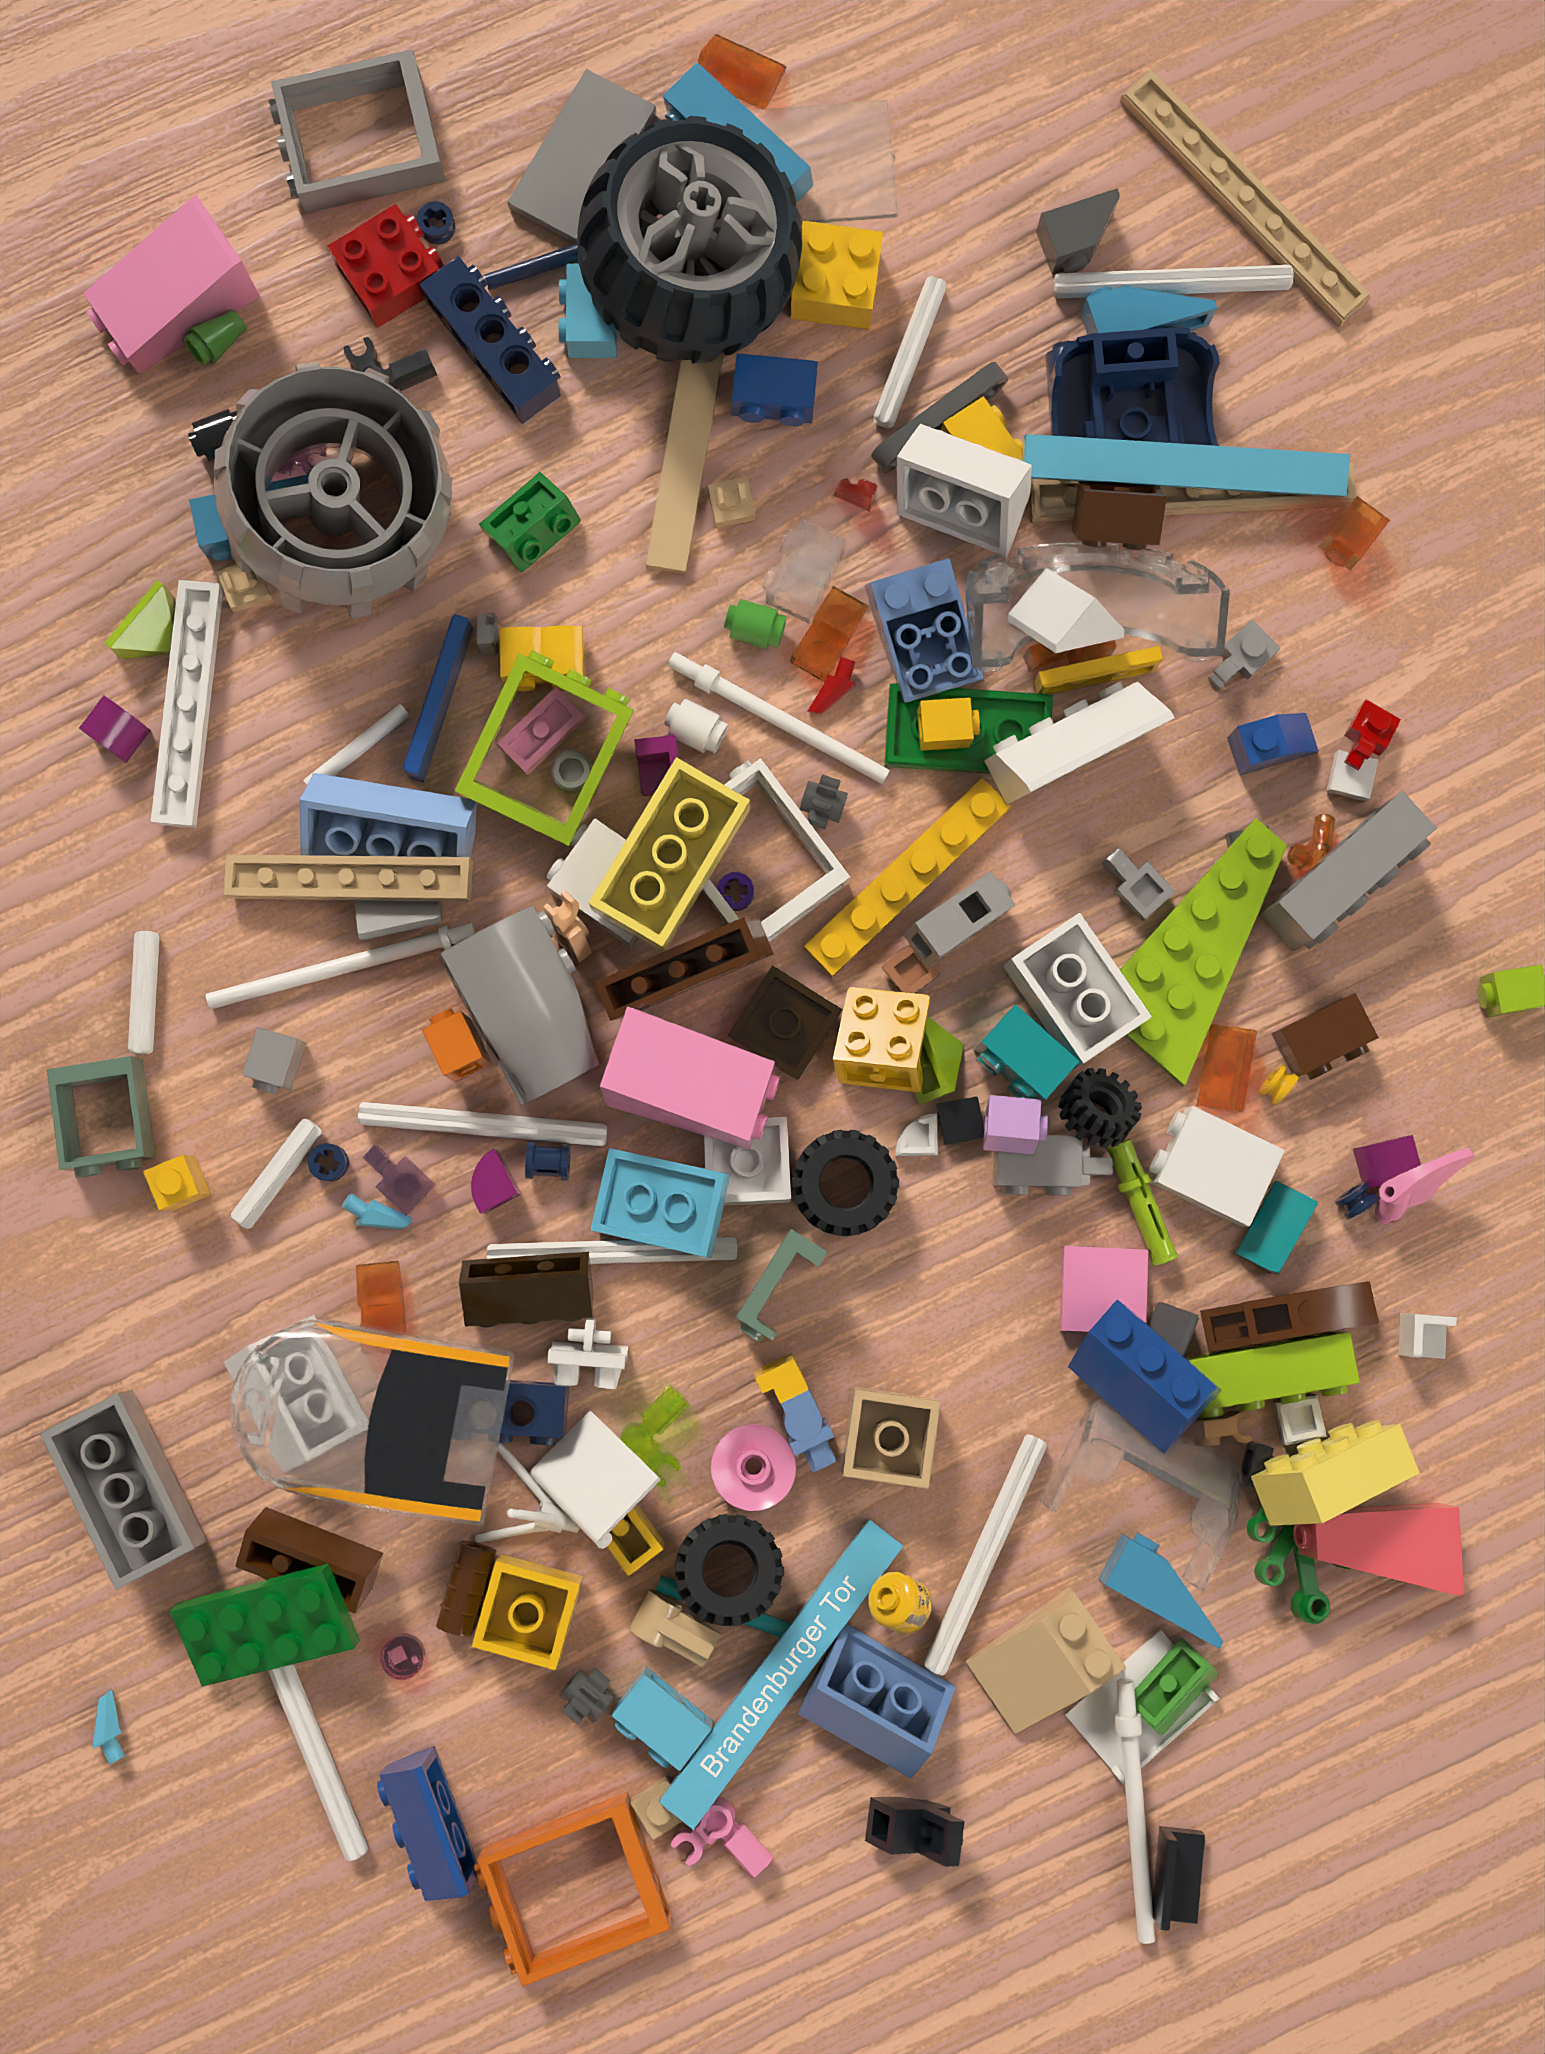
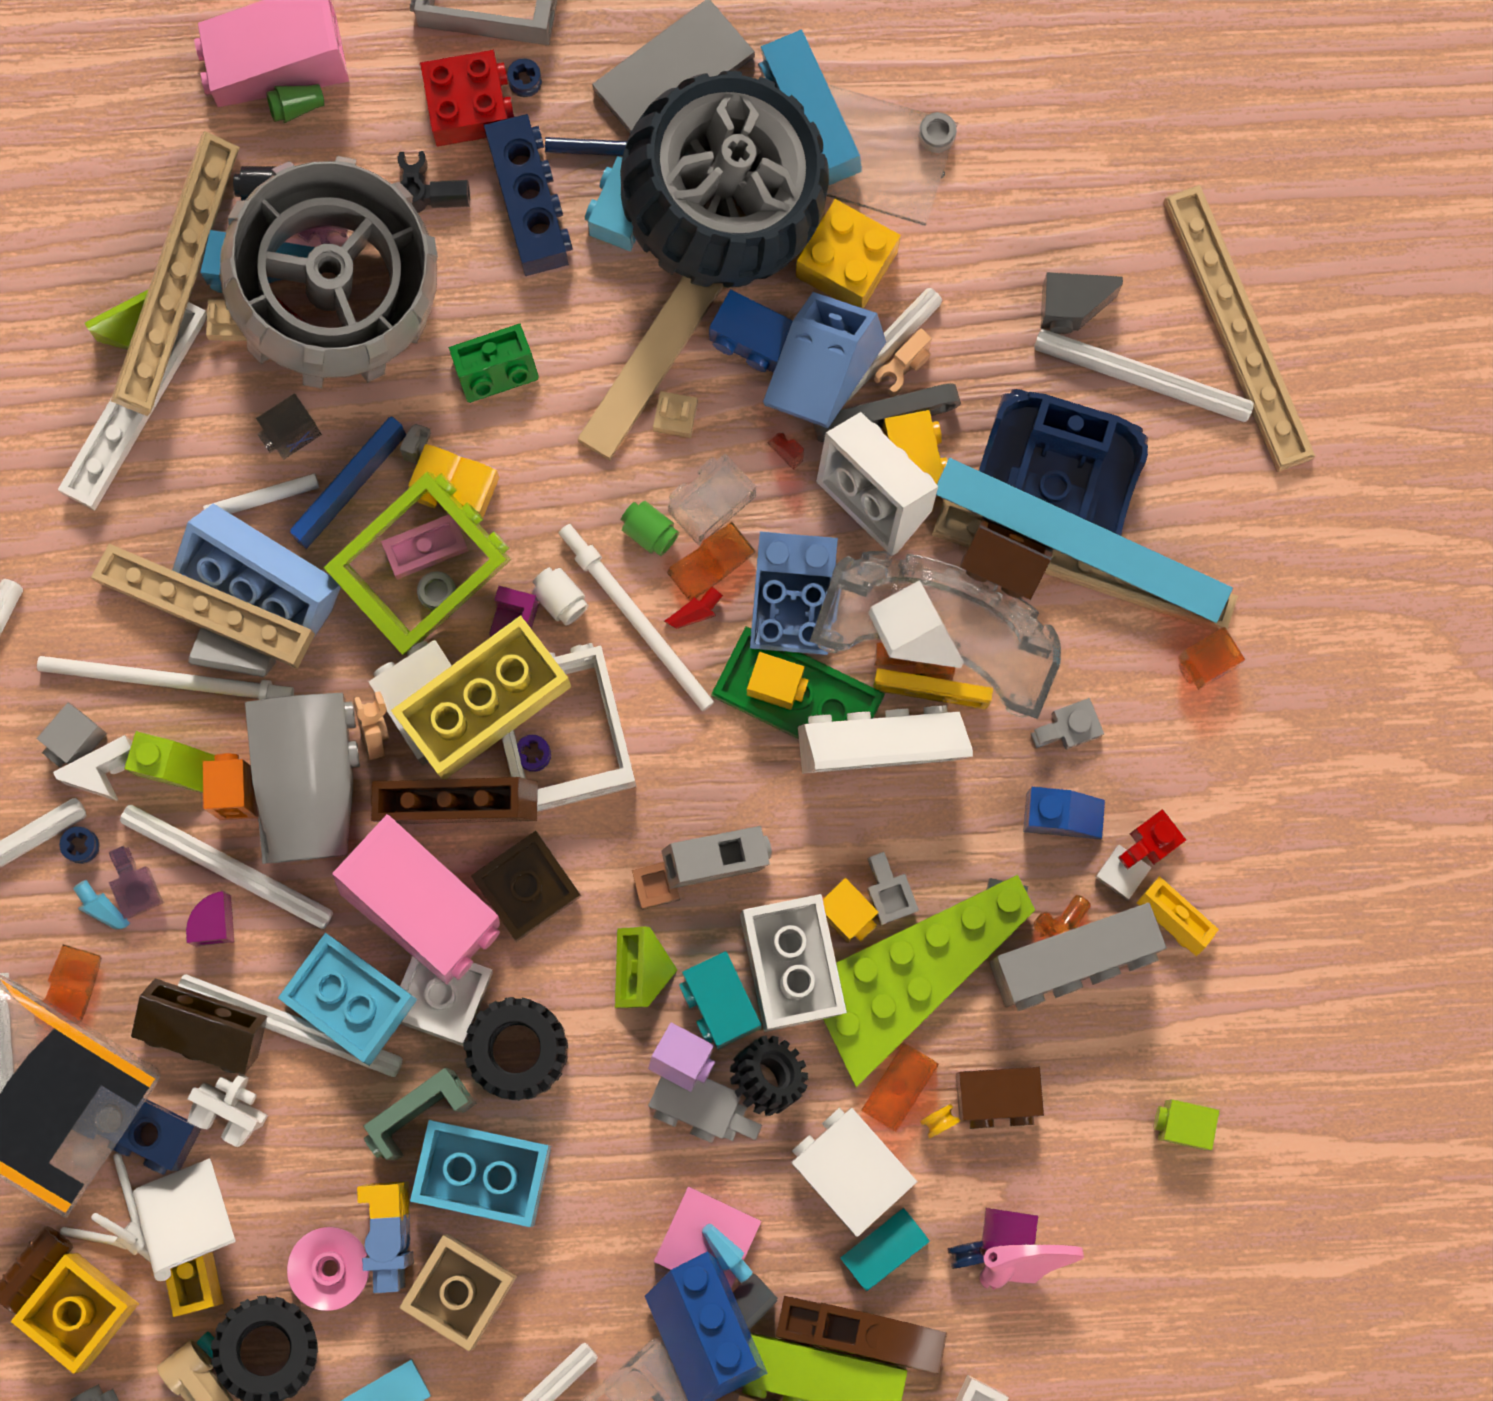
camera: 25 degrees right, 5 degrees down
(114, 729) = (62, 398): magenta brick -> none
(174, 558) = (175, 274): none -> tan tile
(307, 1087) = (90, 770): none -> white slope
(353, 667) = (287, 427): none -> clear smoke brick
(384, 1045) = (167, 761): none -> lime slope
(547, 1161) = (267, 922): dark blue bush -> none
(656, 1419) = (263, 1189): clear neon green bar -> none
(742, 70) = (841, 49): clear orange slope -> none
(823, 801) = (642, 705): dark grey gear -> none
(859, 386) = (824, 359): none -> medium blue slope
(864, 1316) = (481, 1173): none -> medium azure brick
(871, 117) = (937, 132): none -> light grey tile
(881, 1039) = (602, 934): yellow bracket -> none
(907, 877) = (688, 802): yellow plate -> none
(919, 1138) = (601, 1036): white tile -> none
(940, 351) = (910, 355): none -> light nougat plate
(960, 1120) = (642, 1035): black tile -> none
(1110, 919) = (849, 912): none -> yellow brick
(1130, 1293) = (727, 1253): none -> medium azure bar
(1142, 1202) = (774, 1159): lime pin -> none
(1143, 309) = (1101, 390): dark azure slope -> none
(1434, 799) = (1178, 916): none -> yellow plate

